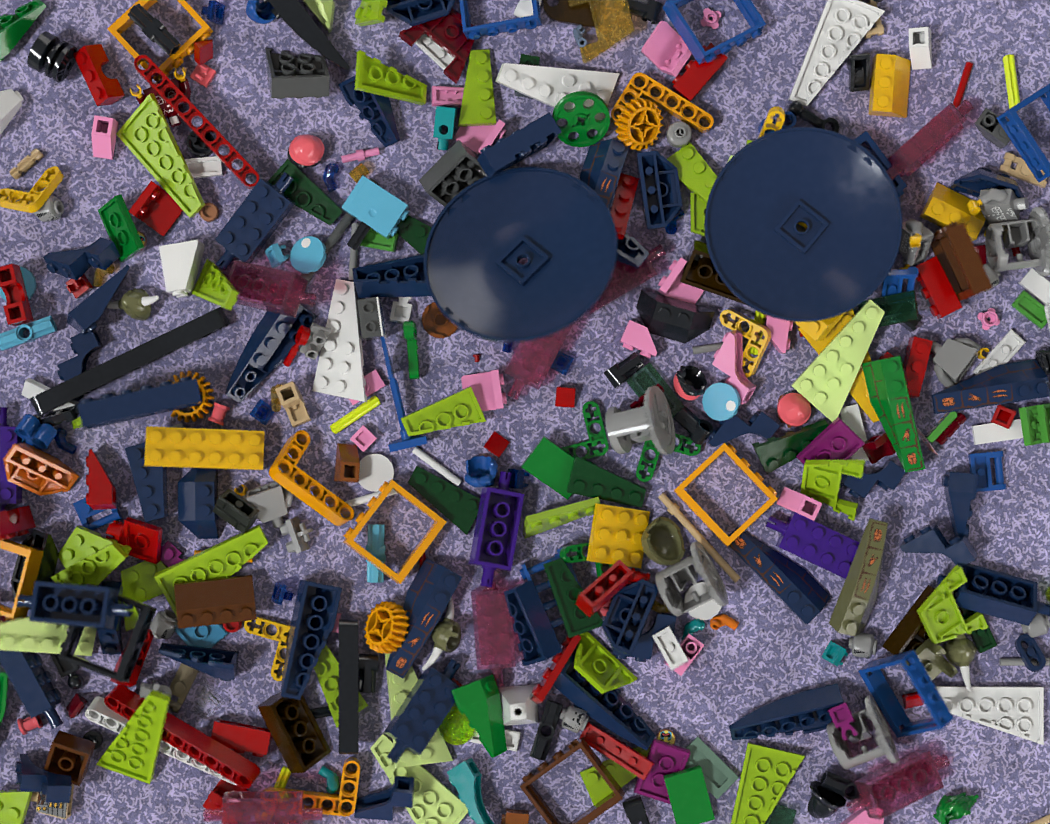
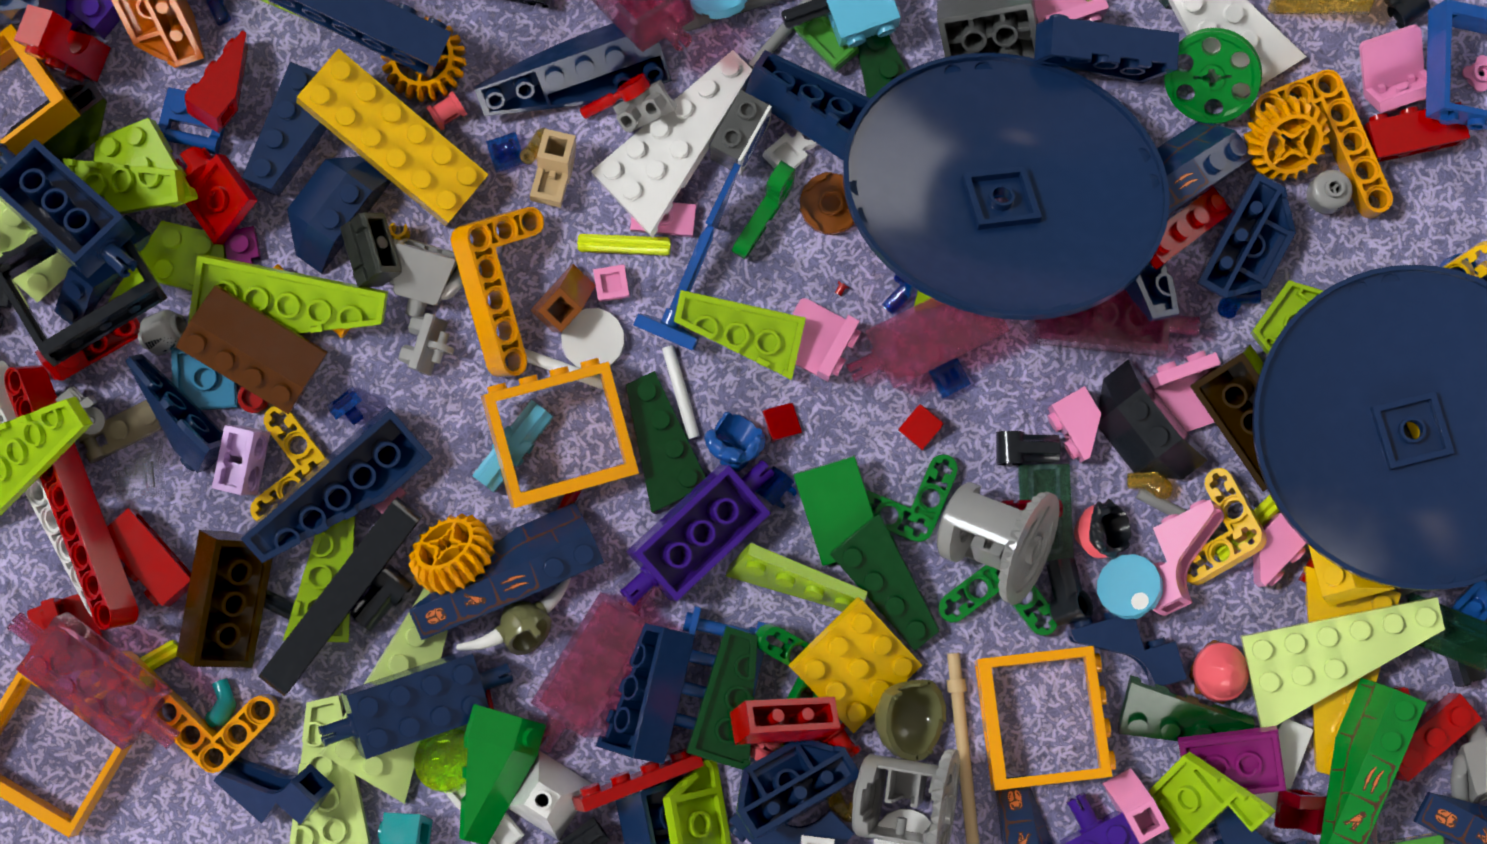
camera: 30 degrees right, 5 degrees down
(250, 658) = (241, 460): none -> lavender brick
(693, 171) = (1314, 254): lime wing -> none
(695, 342) = (1152, 482): none -> clear yellow arm

